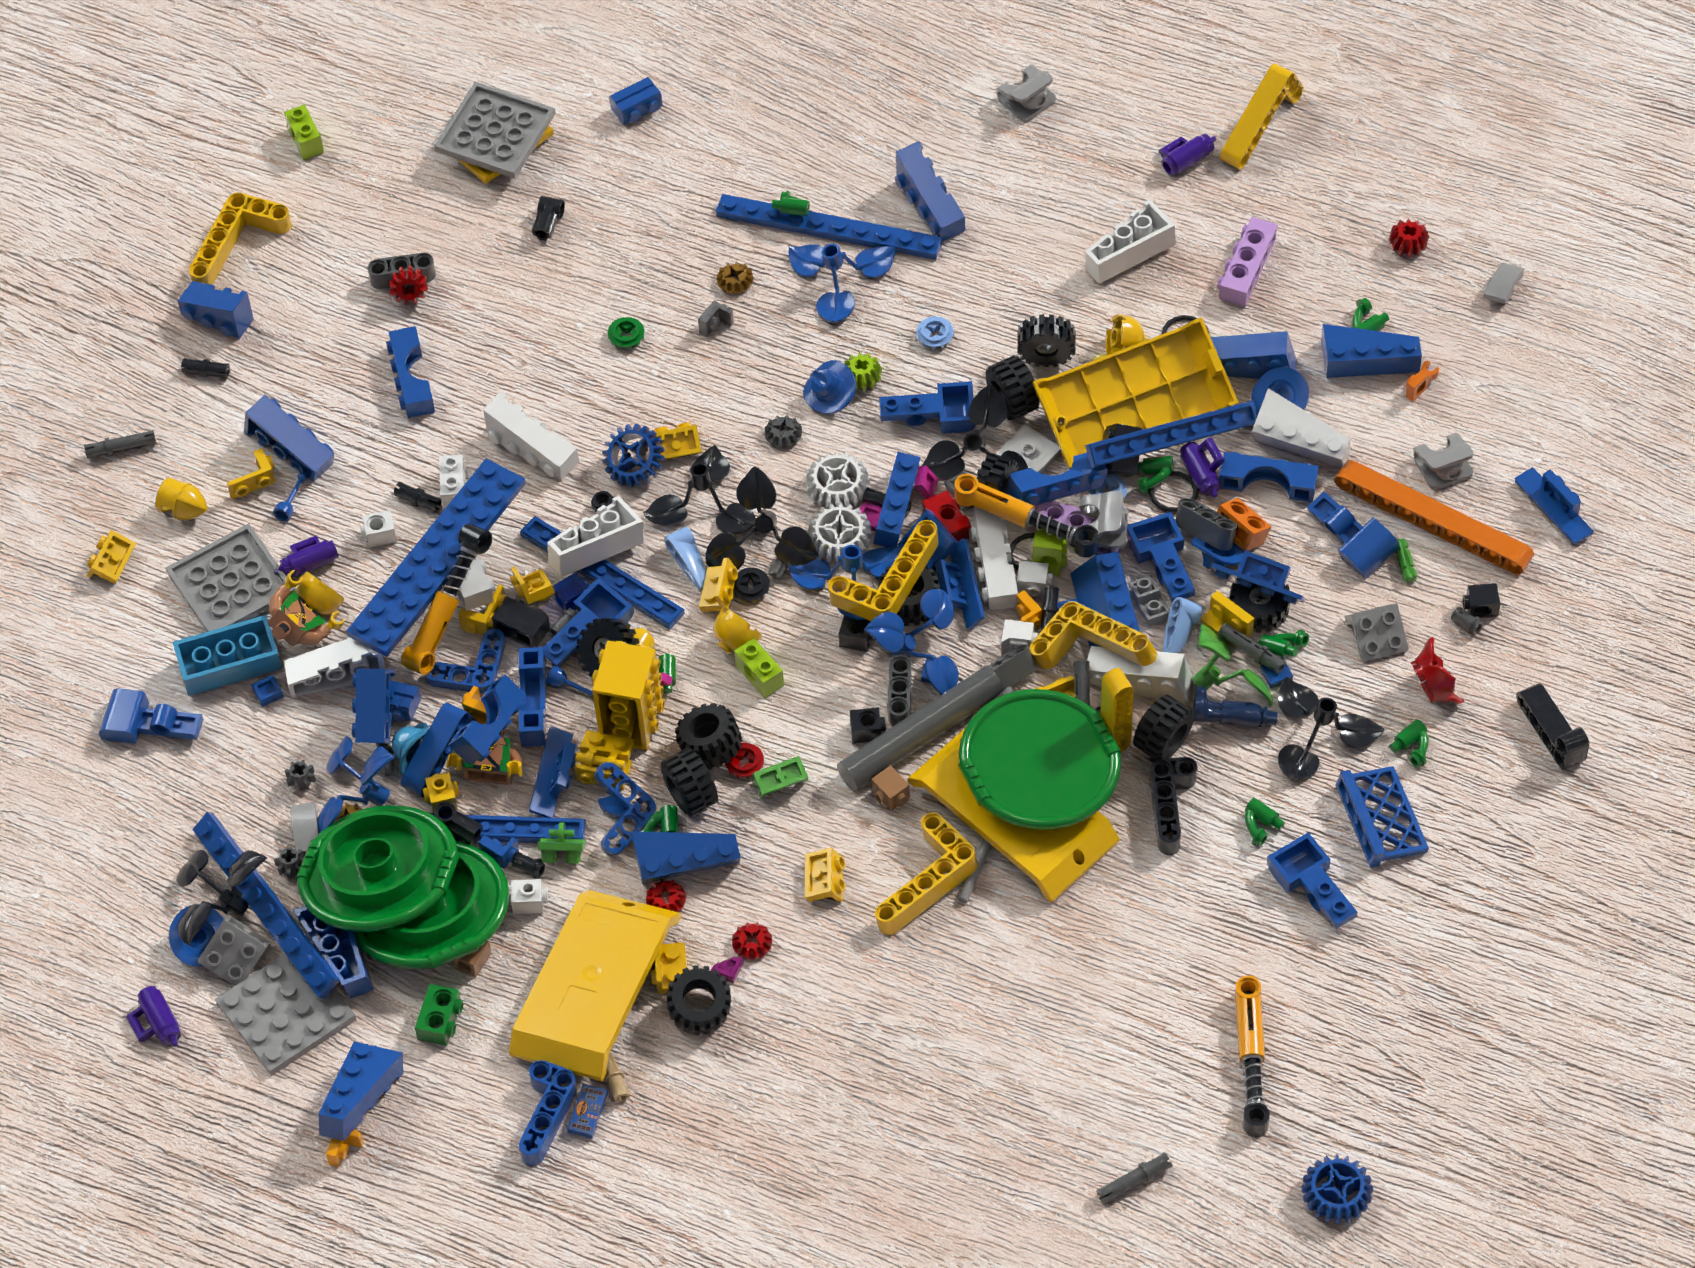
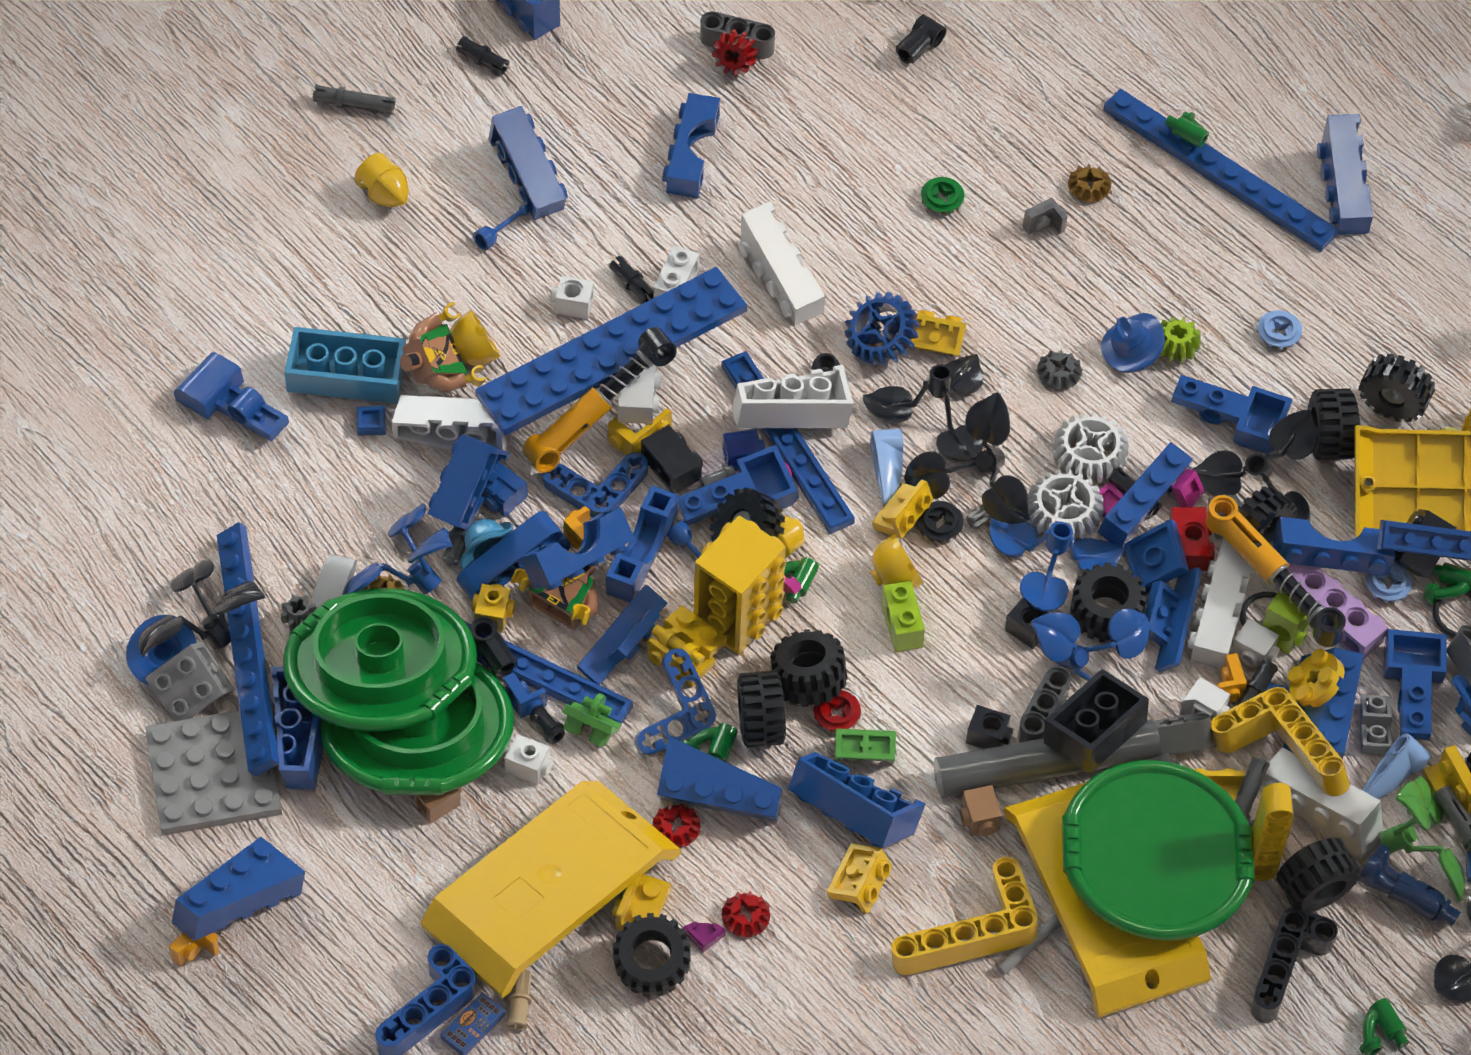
camera: 20 degrees right, 0 degrees up
(112, 556) = (283, 213): yellow bracket -> none
(158, 1015) = (78, 719): dark purple piece -> none
(228, 579) = (390, 285): light grey plate -> none
(255, 480) = (472, 193): yellow bracket -> none
(300, 775) = (356, 525): dark grey gear -> none
(308, 556) = (484, 296): dark purple piece -> none
(433, 1014) = (361, 843): green brick -> none
(532, 586) = (702, 425): yellow bracket -> none
(611, 806) = (668, 700): blue tile -> none
(793, 820) = (855, 800): none -> blue wedge
(809, 258) = (1178, 196): blue plant -> none
(895, 579) = (1094, 580): yellow beam -> none
(947, 683) = (1096, 721): none -> black brick
(1033, 447) = (1326, 500): white plate -> none
(1081, 585) = (1318, 666): none -> yellow plate
(1111, 517) = (1373, 615): light grey piece -> none

